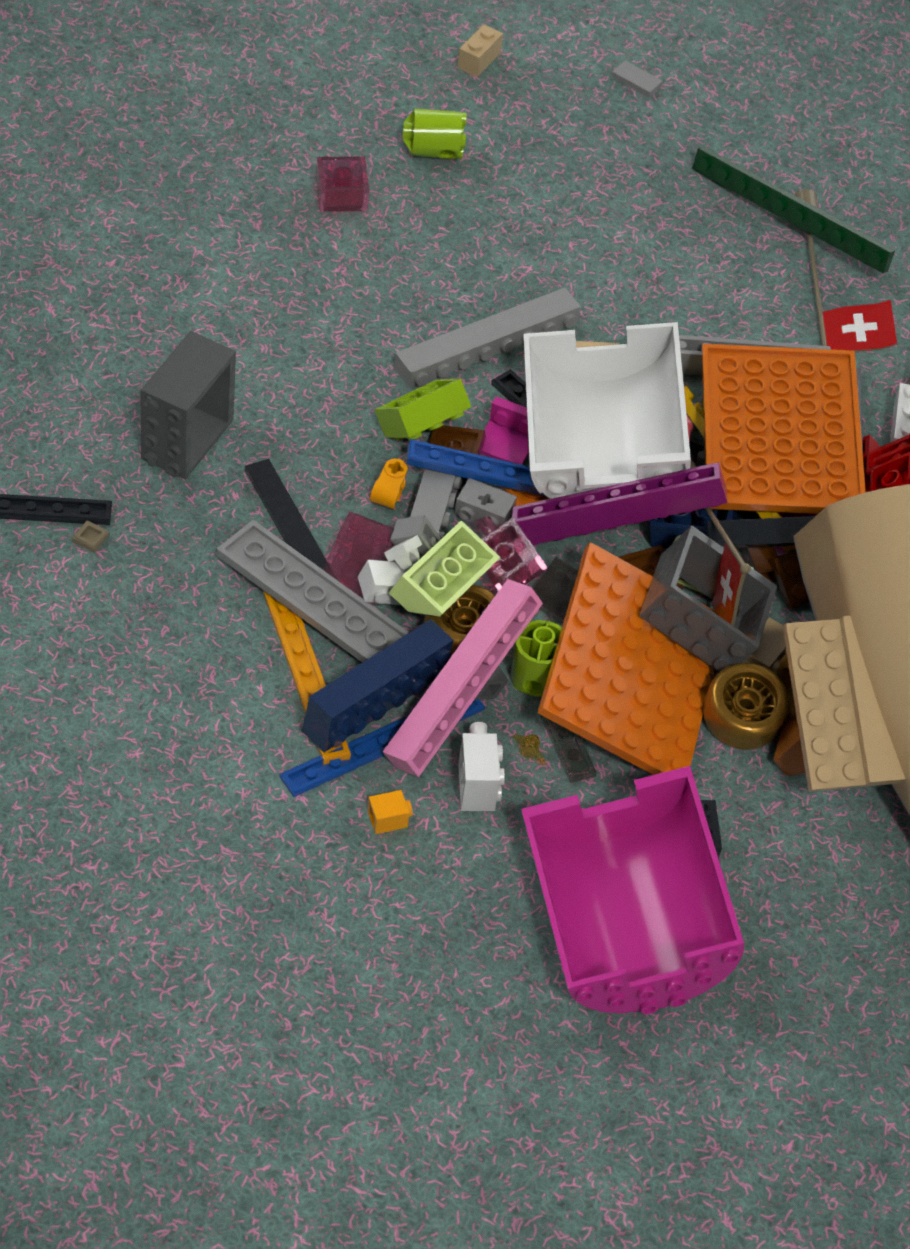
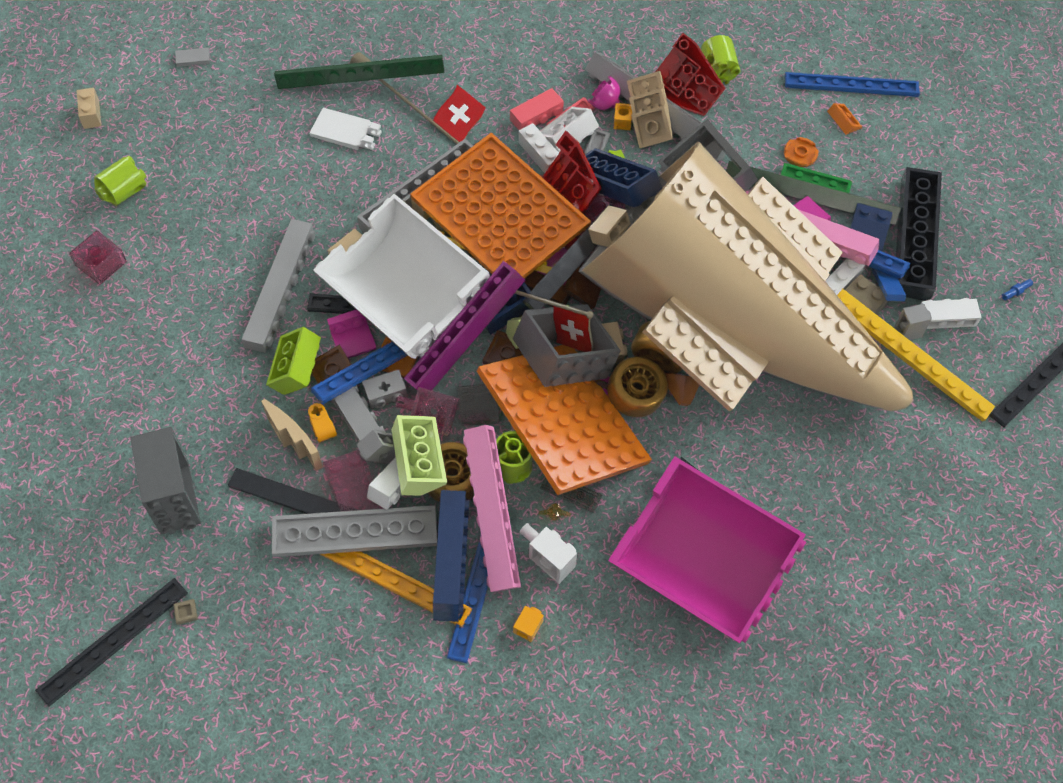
camera: 40 degrees left, 10 degrees up
(347, 465) = (291, 434): none -> tan slope
(405, 552) = (382, 461): white tile -> none
(717, 253) = (345, 129): none -> white tile

